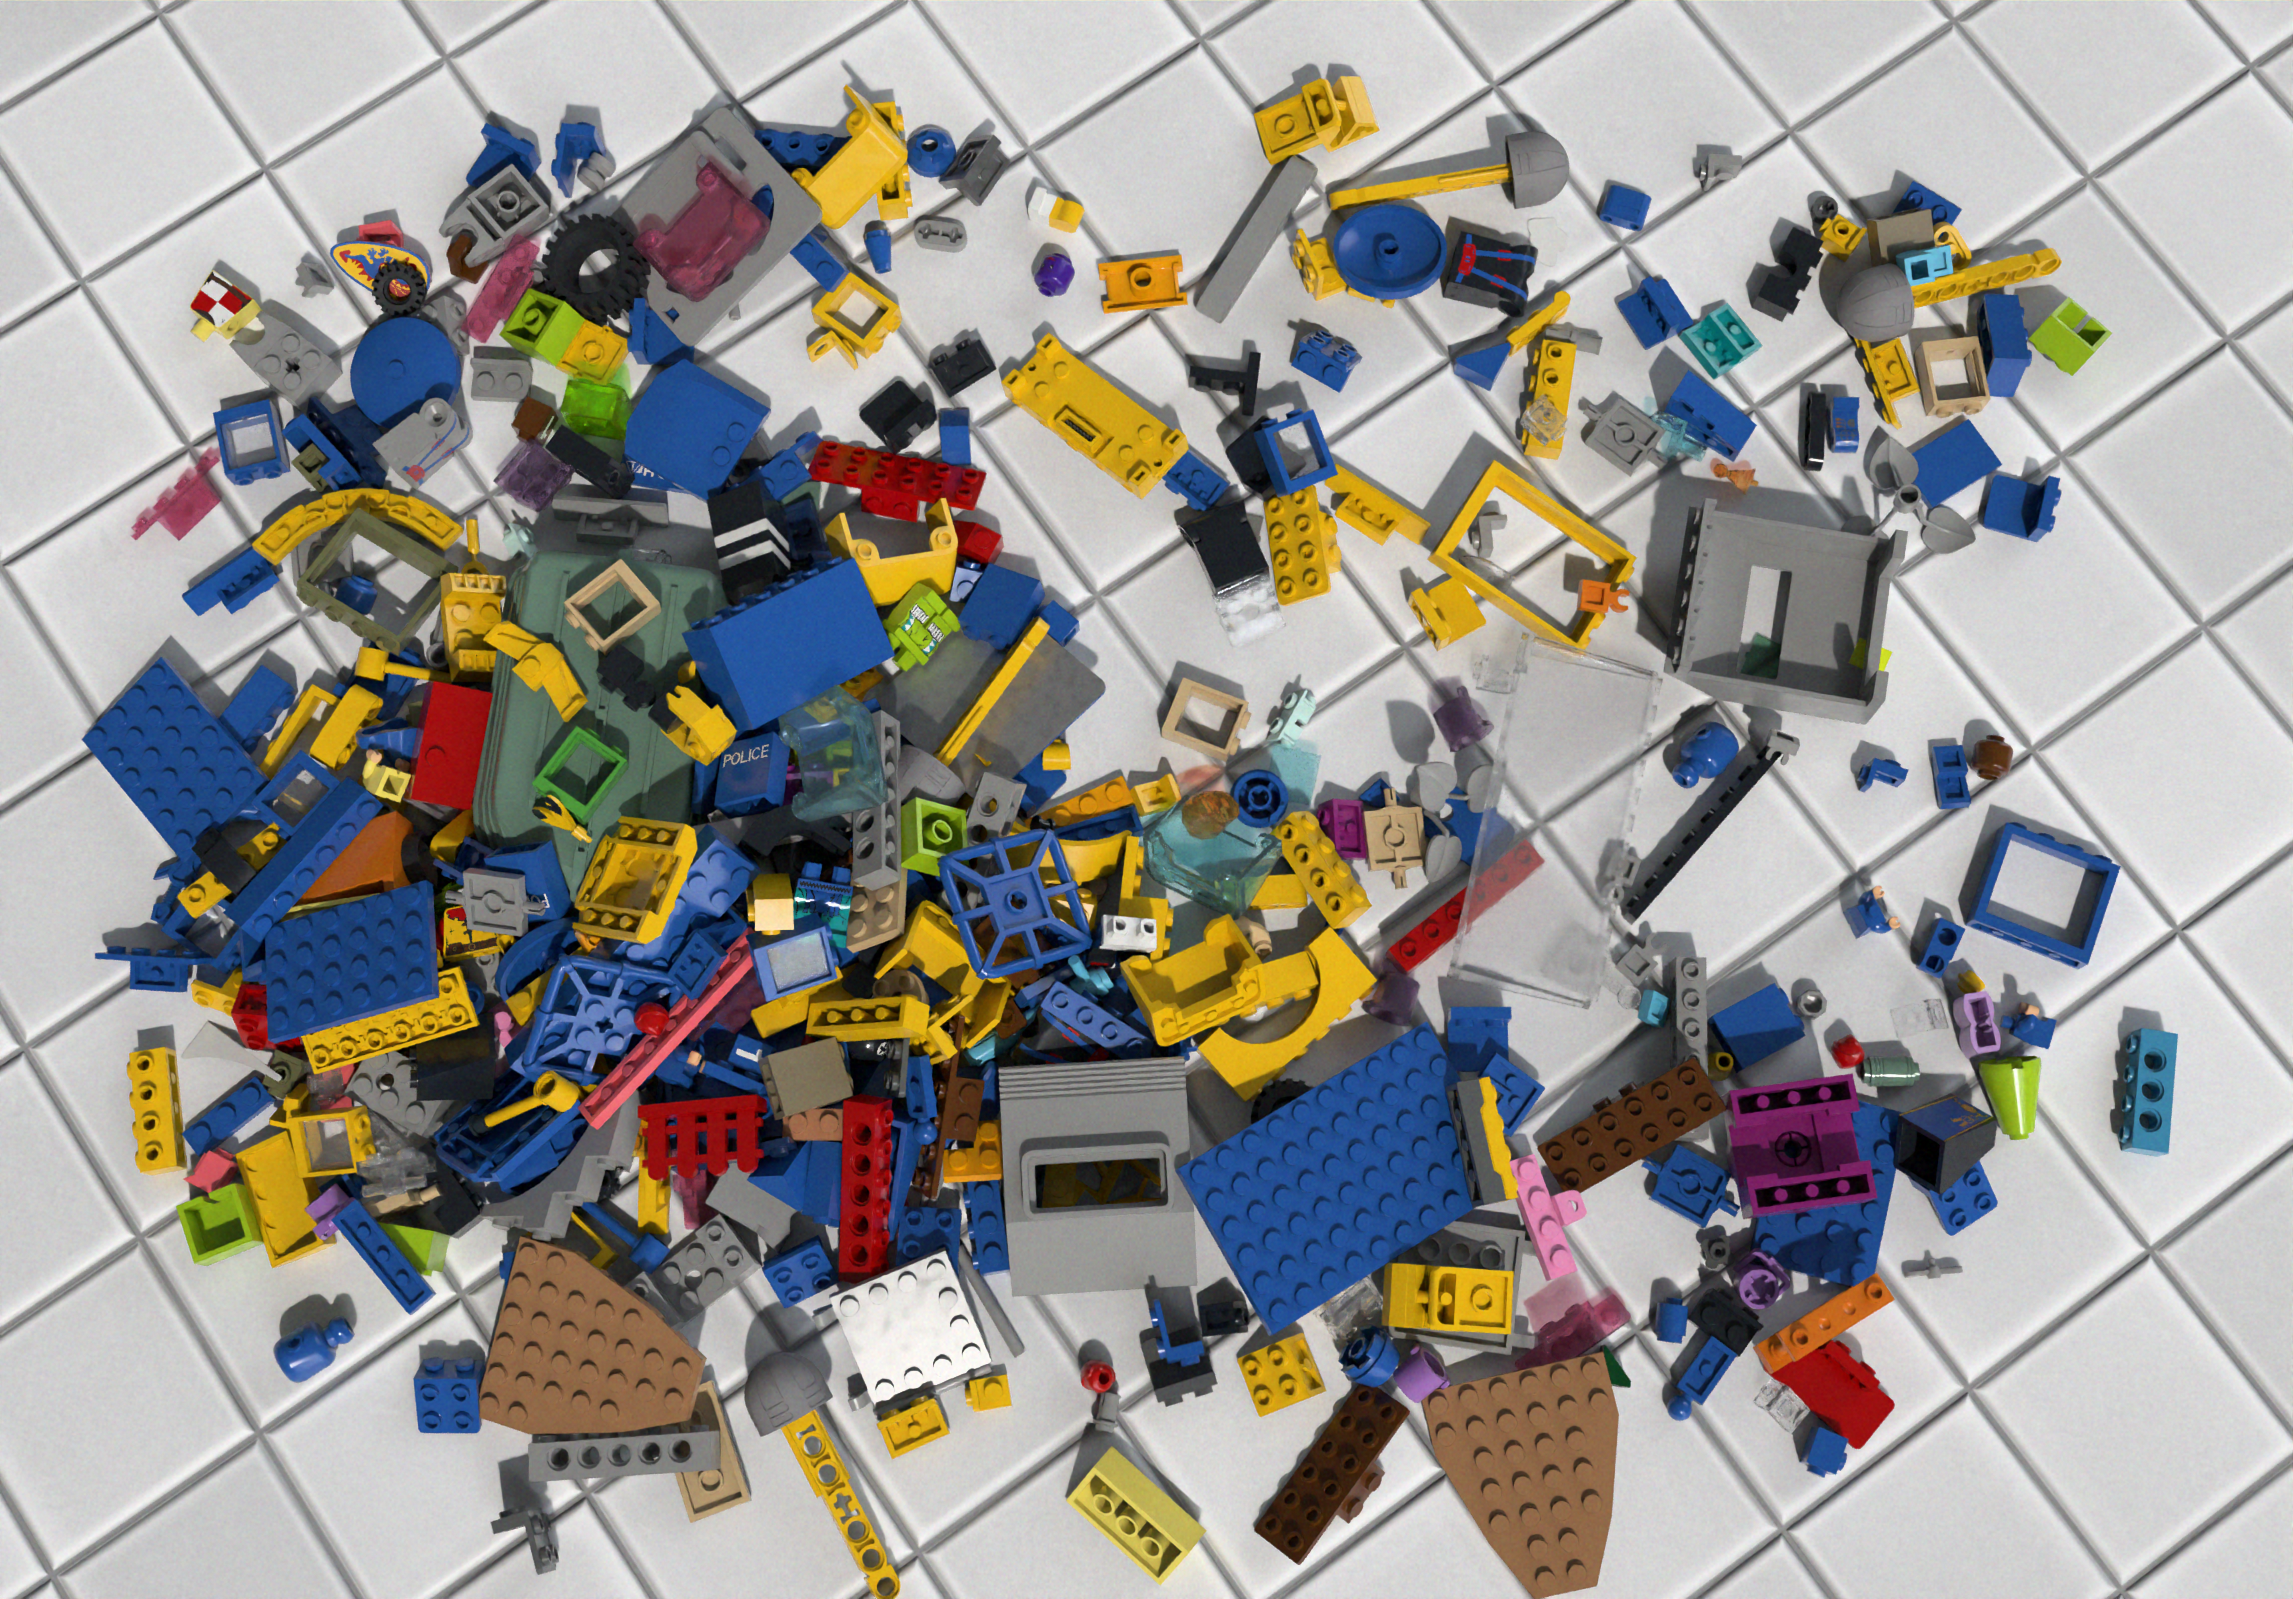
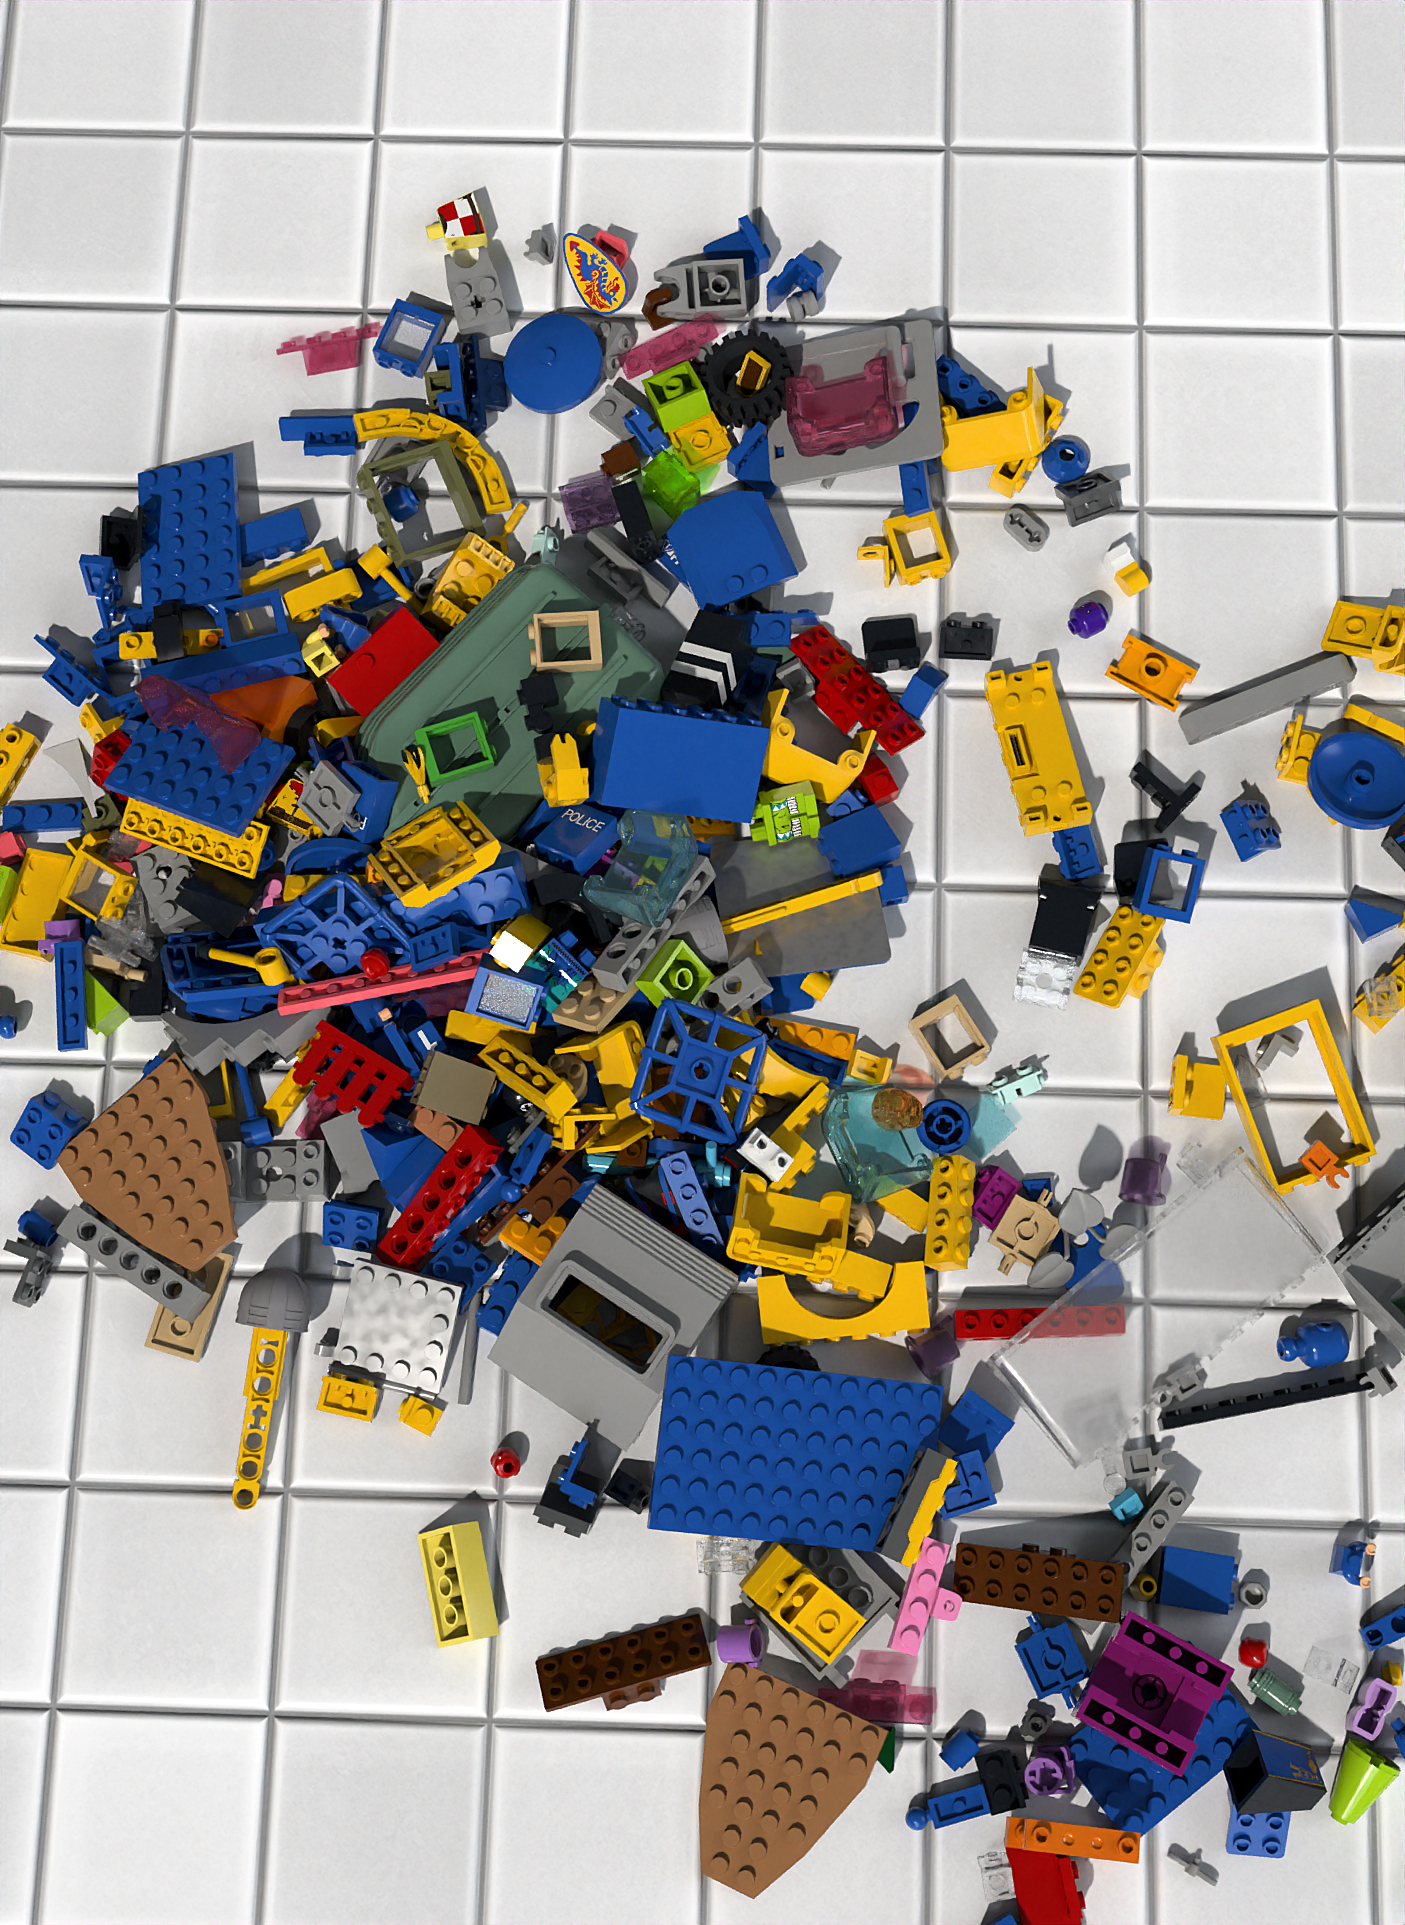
camera: 40 degrees right, 0 degrees up
(113, 810) = (123, 538): none -> black bracket
(122, 860) = (102, 581): none -> blue bracket
(285, 917) = (177, 703): none -> clear pink windscreen
(387, 302) = (609, 297): black tyre -> none
(424, 441) = (529, 424): light grey piece -> none
(509, 1491) = (38, 1228): none -> blue brick
(539, 666) = (484, 648): yellow plate -> none
(547, 382) = (637, 423): none -> blue hinge
(598, 262) = (752, 375): none -> tile
(839, 500) = (797, 680): none -> light grey bracket
(879, 250) = (970, 508): blue cone -> none
(1107, 1412) = (493, 1494): light grey pin -> none
(1281, 1374) = (640, 1564): yellow bracket -> none
(1370, 1357) = (713, 1602): blue cone -> none
(1373, 511) = (1197, 971): yellow bracket -> none

